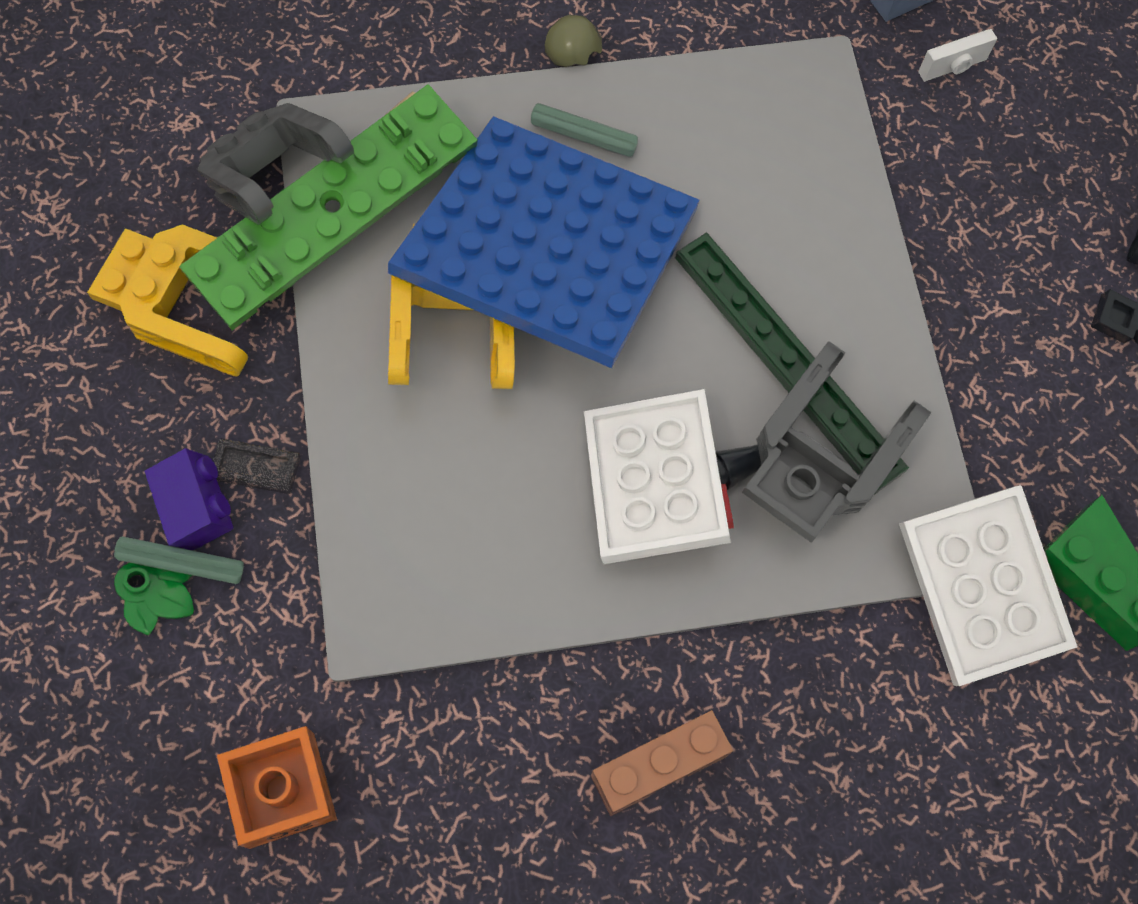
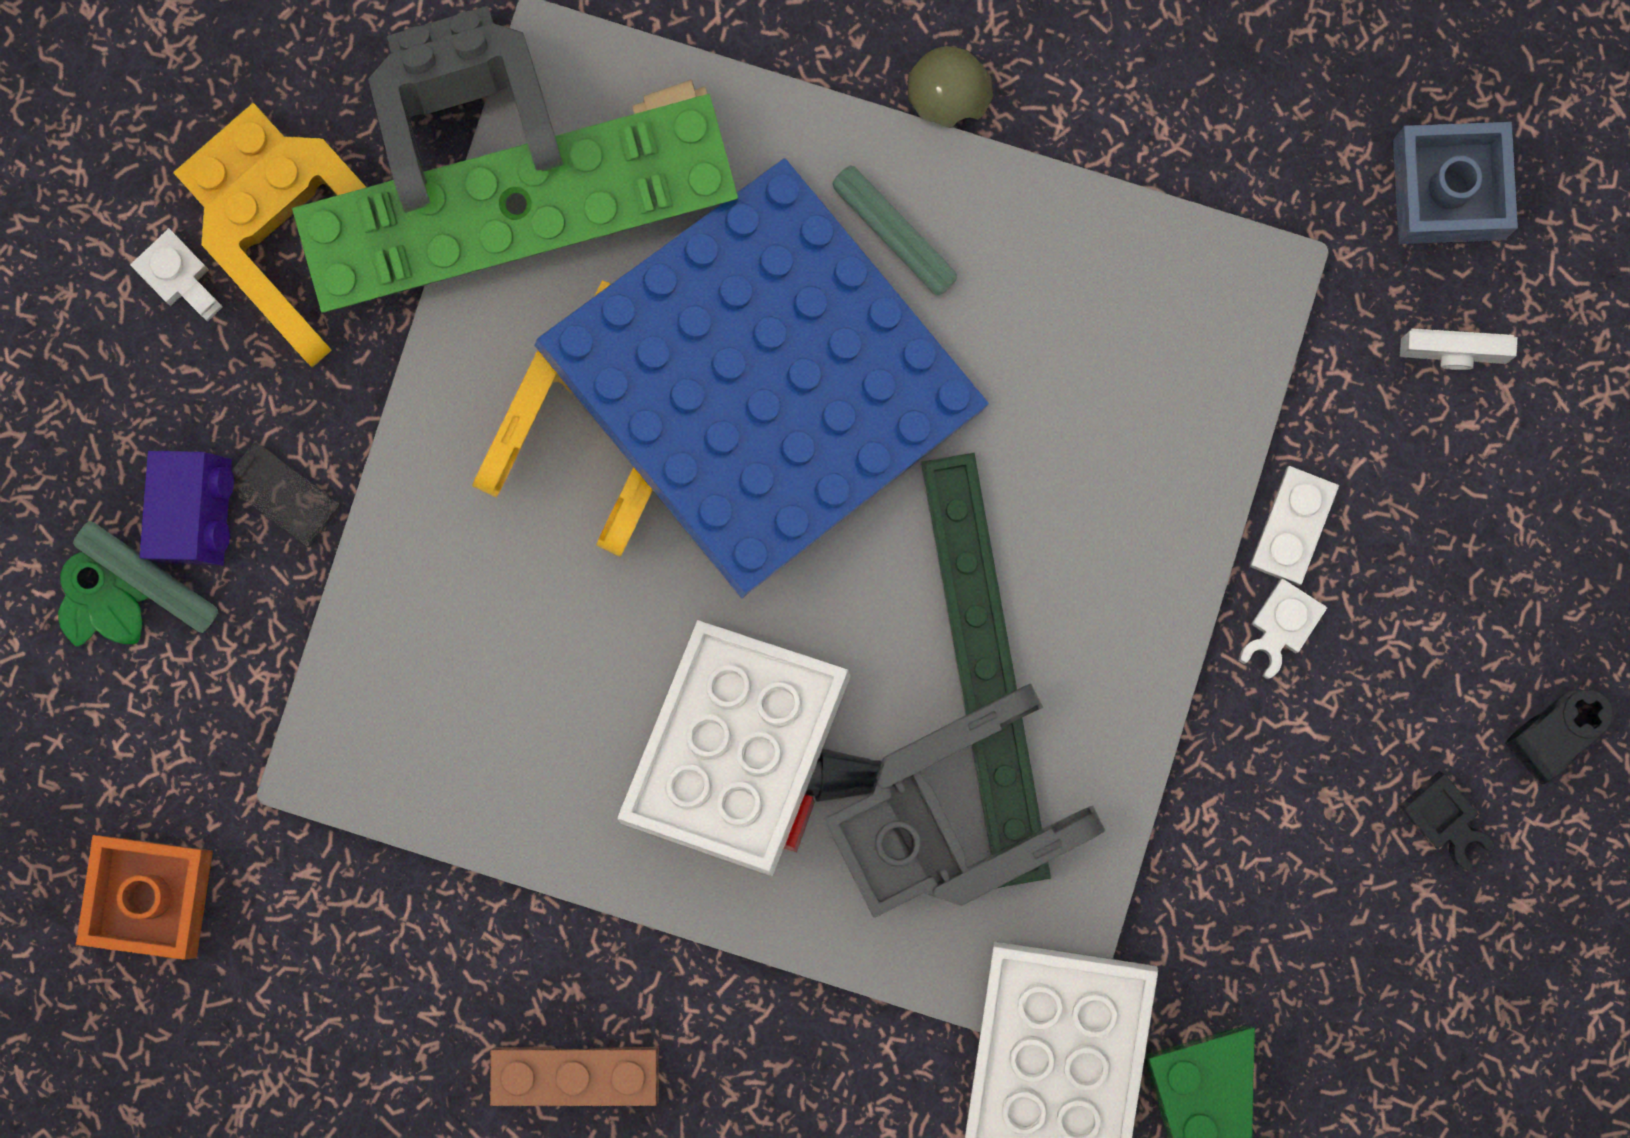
camera: 30 degrees right, 15 degrees up
(116, 357) = (175, 273): none -> white plate
(923, 196) = (1294, 525): none -> white plate
(955, 253) = (1286, 621): none -> white plate

